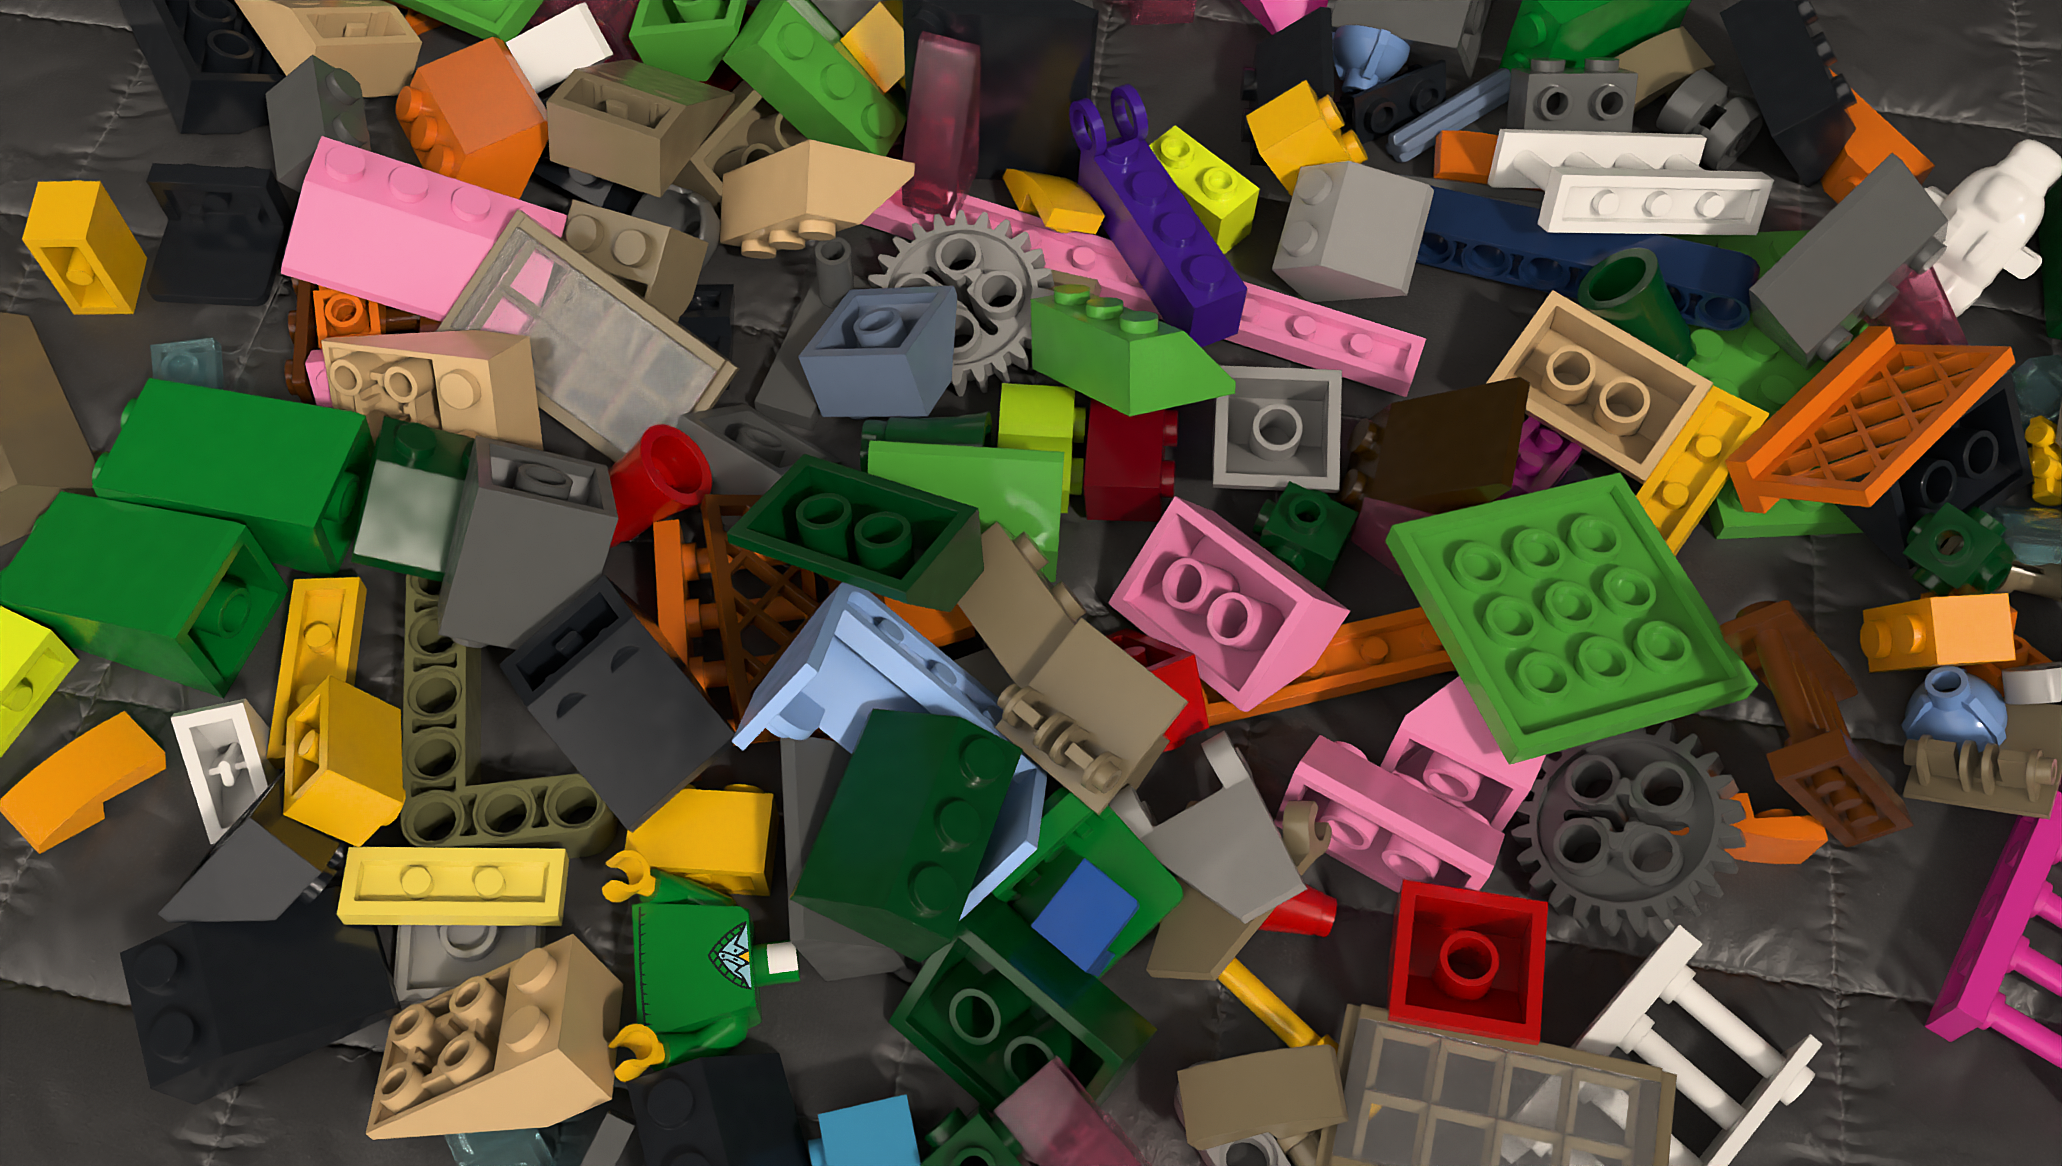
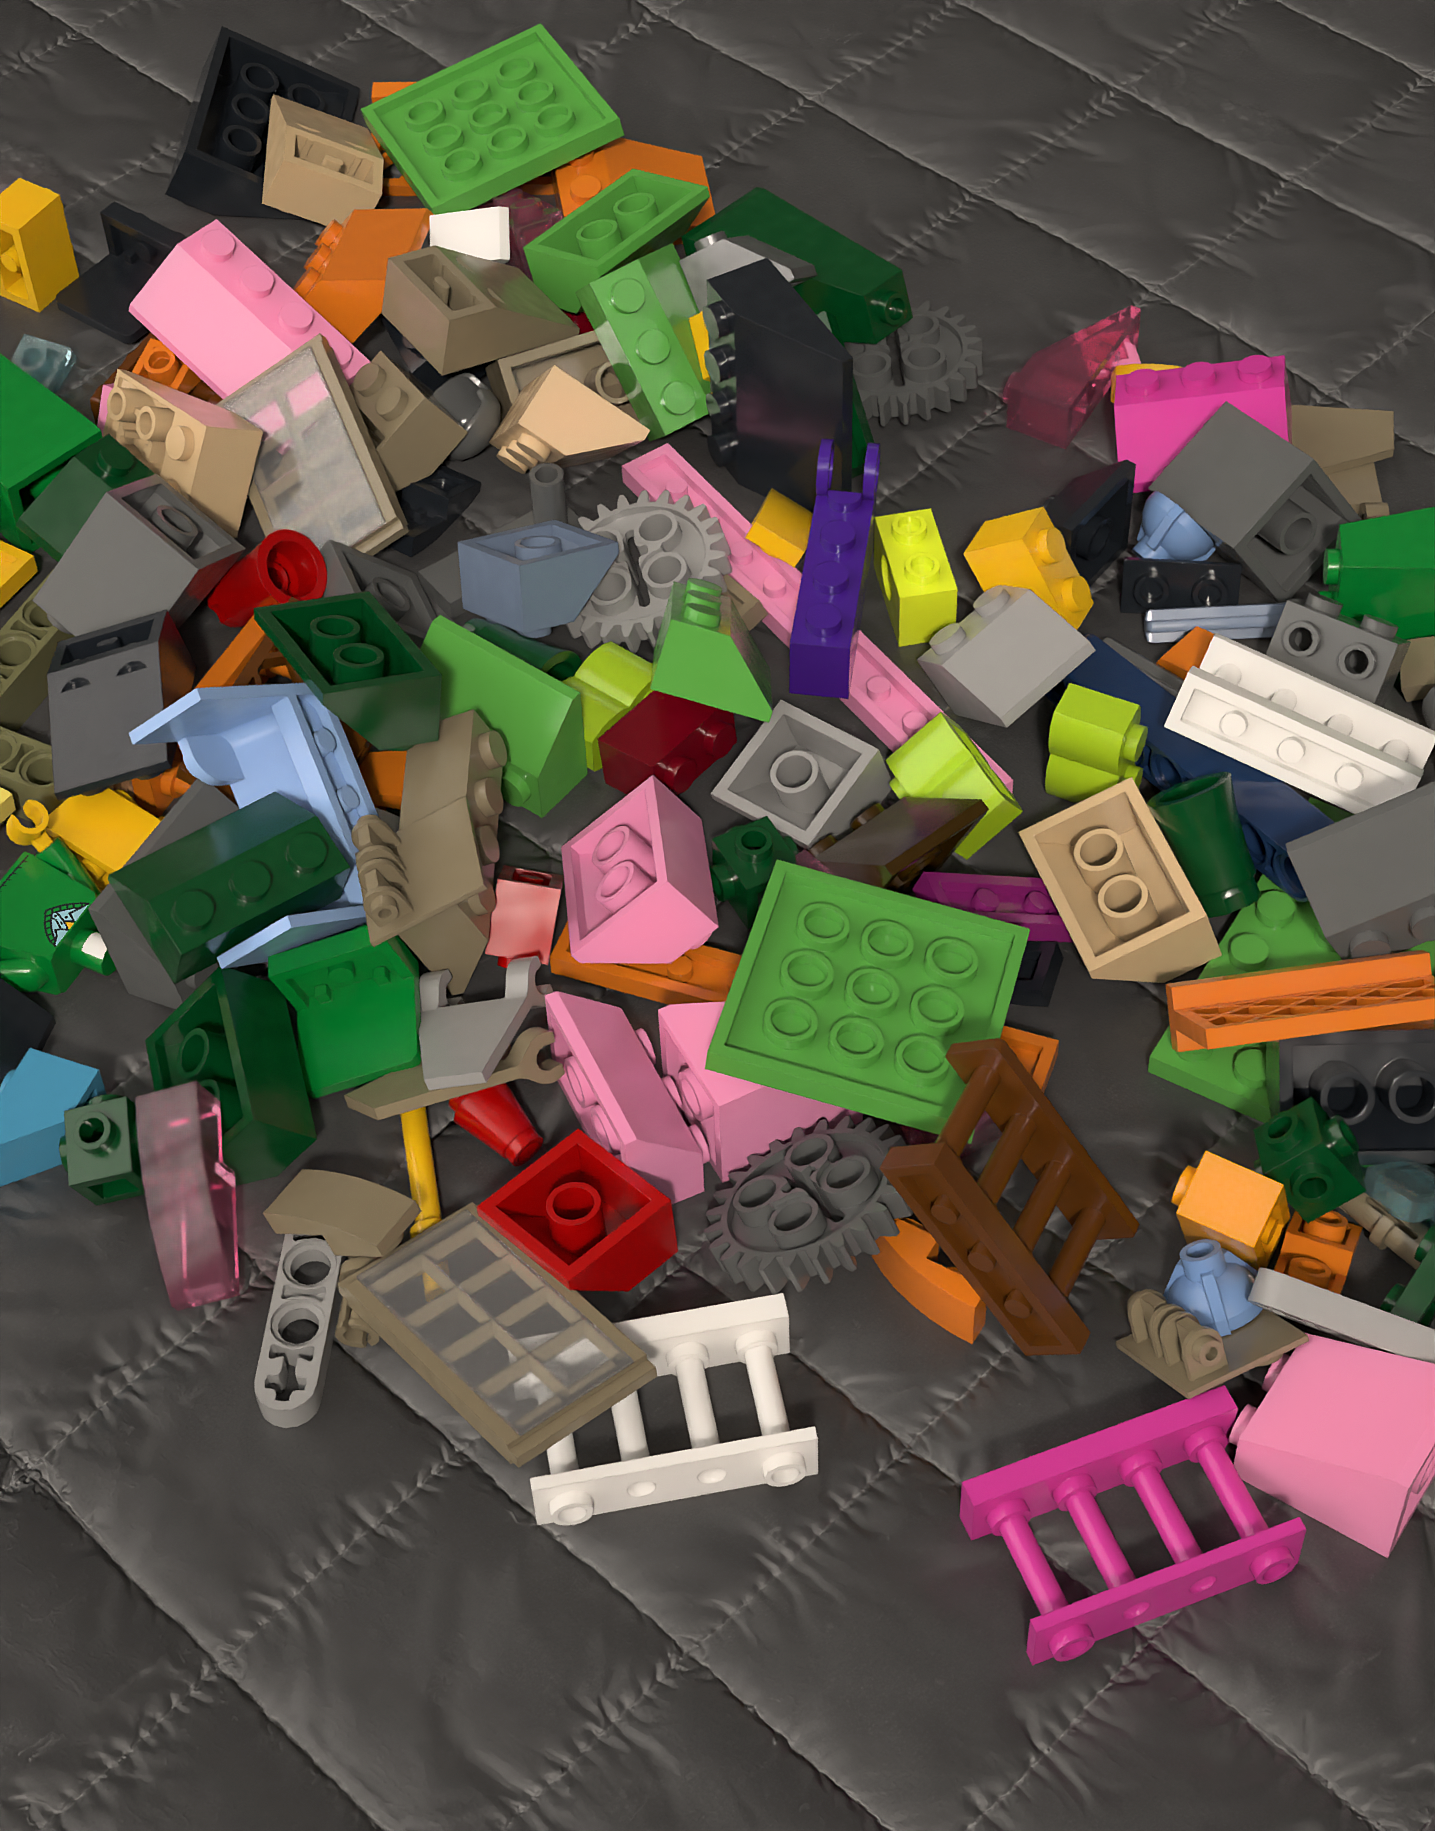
camera: 40 degrees right, 10 degrees down
(313, 104) = (262, 216): dark grey slope -> none
(942, 125) = (705, 421): clear pink slope -> none
(1087, 917) = (315, 1023): blue panel -> none
(1400, 364) = (948, 764): none -> lime brick
(1481, 278) = (1093, 744): none -> lime brick
(1695, 464) = (1134, 993): yellow plate -> none

